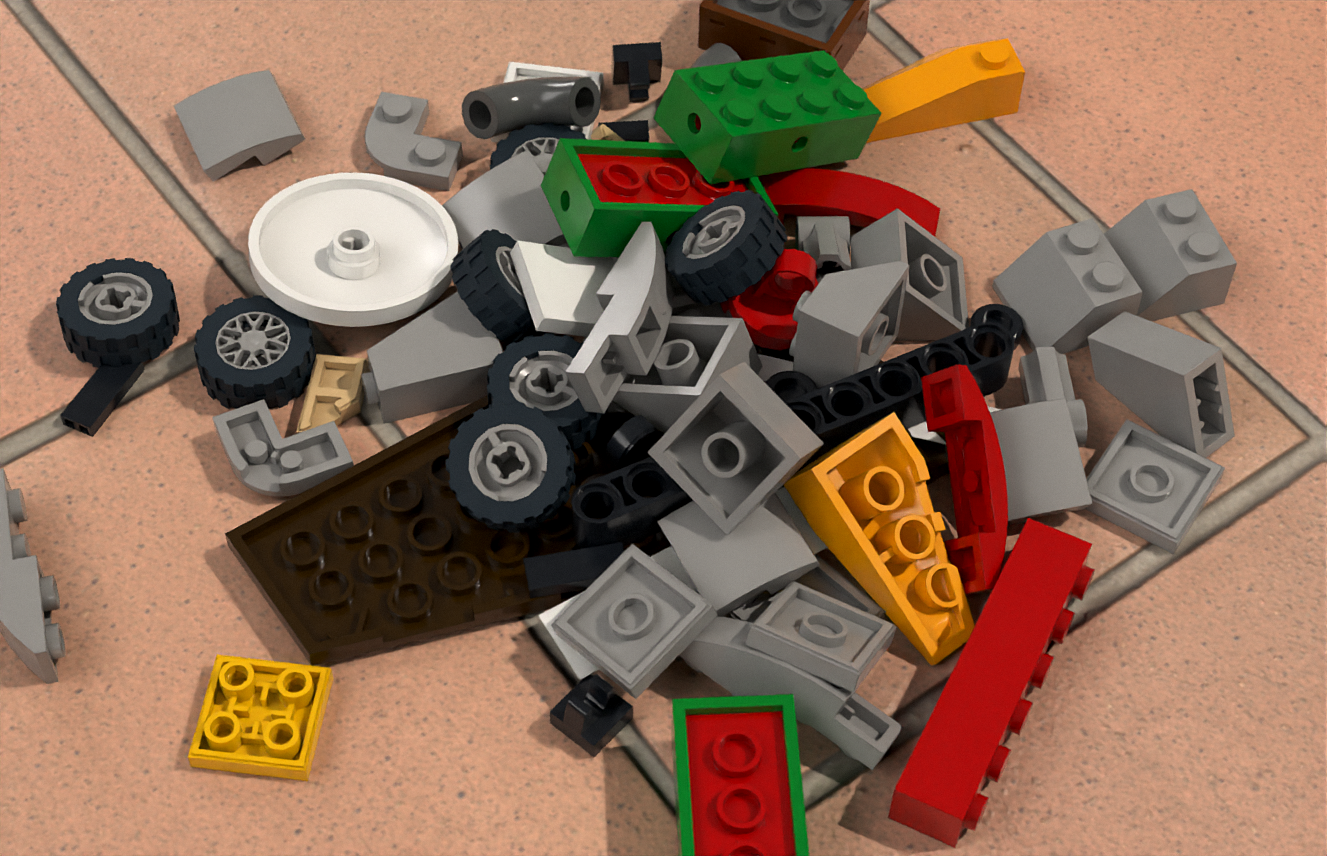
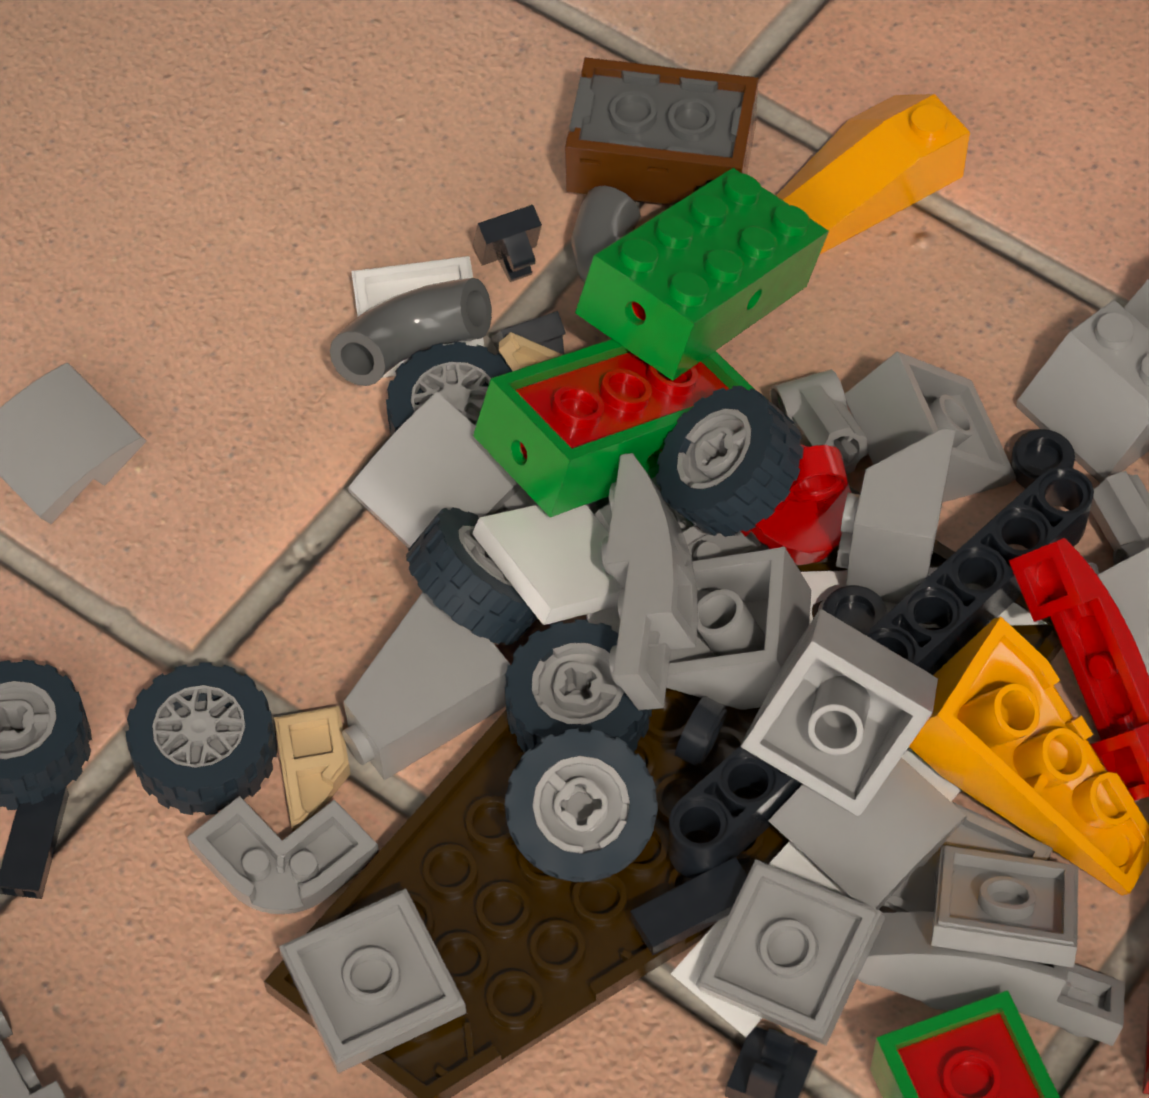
camera: 15 degrees left, 5 degrees up
(304, 554) = (372, 980): none -> light grey tile
(352, 249) = (270, 573): white dish -> none
(399, 148) = (269, 425): light grey plate -> none
(844, 194) = (820, 342): red slope -> none

